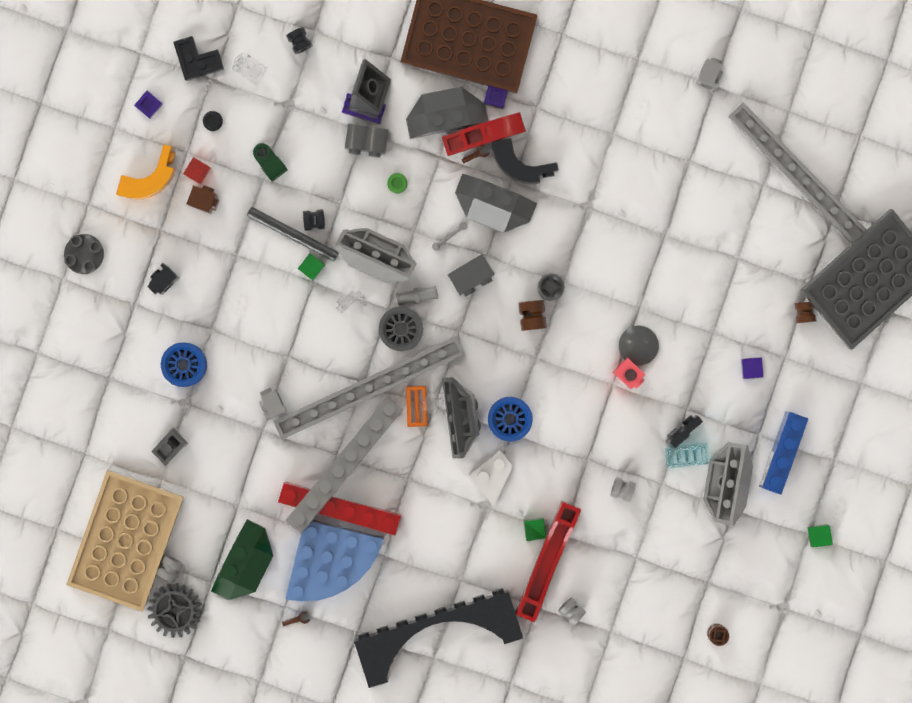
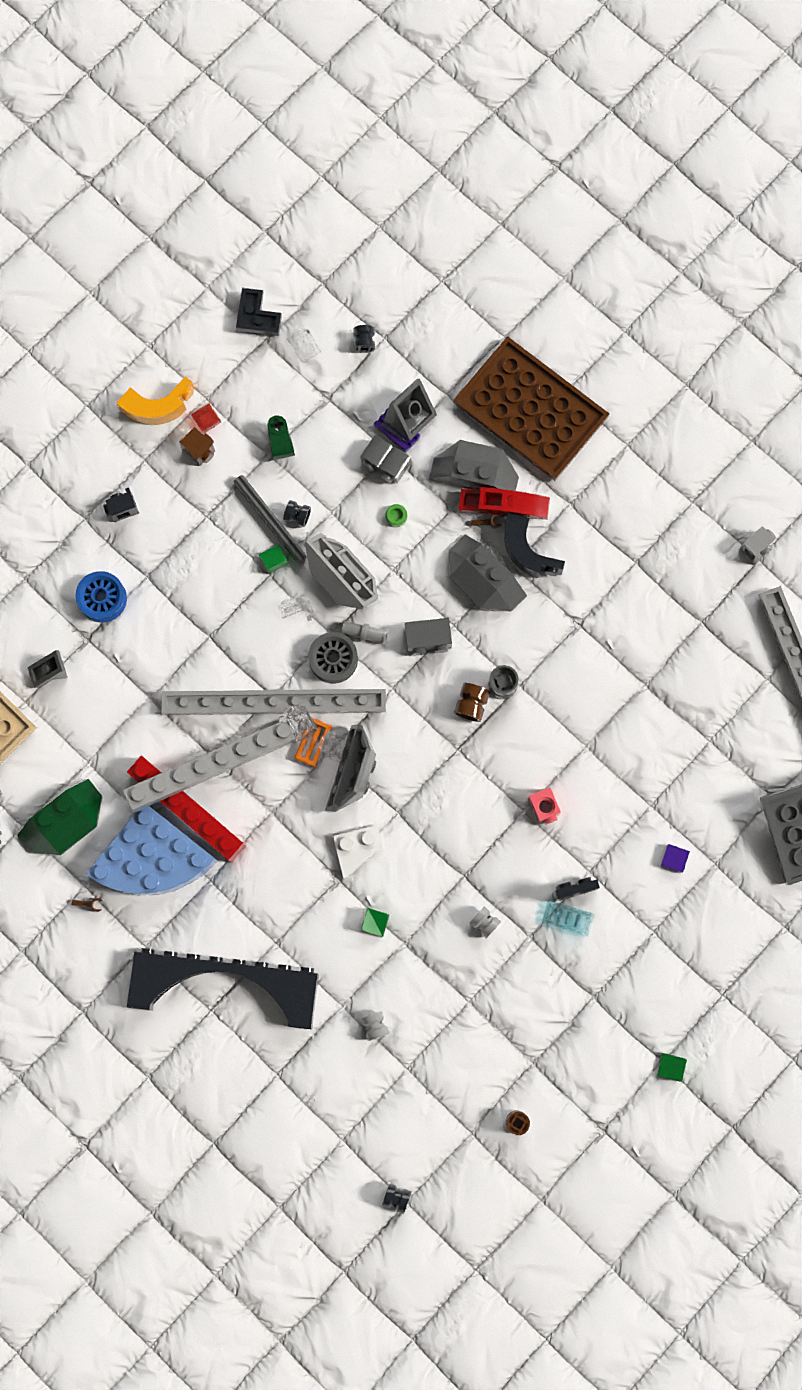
camera: 30 degrees right, 10 degrees down
(83, 253) = (57, 448): dark grey dish -> none
(148, 104) = (190, 337): dark purple tile -> none
(212, 121) = (244, 378): black plate -> none
(271, 403) = (169, 674): light grey brick -> none
(398, 396) = (298, 721): none -> clear bracket
(462, 226) = (442, 586): light grey hinge -> none
(495, 97) = (532, 475): dark purple tile -> none
(495, 409) = (410, 779): blue wheel -> none
(547, 561) = (373, 961): red arch -> none
(638, 345) = (568, 782): dark grey dish -> none
(728, 483) = (599, 965): light grey wedge -> none
(783, 452) = (670, 960): blue brick -> none
(805, 316) = (755, 825): reddish brown wheel -> none

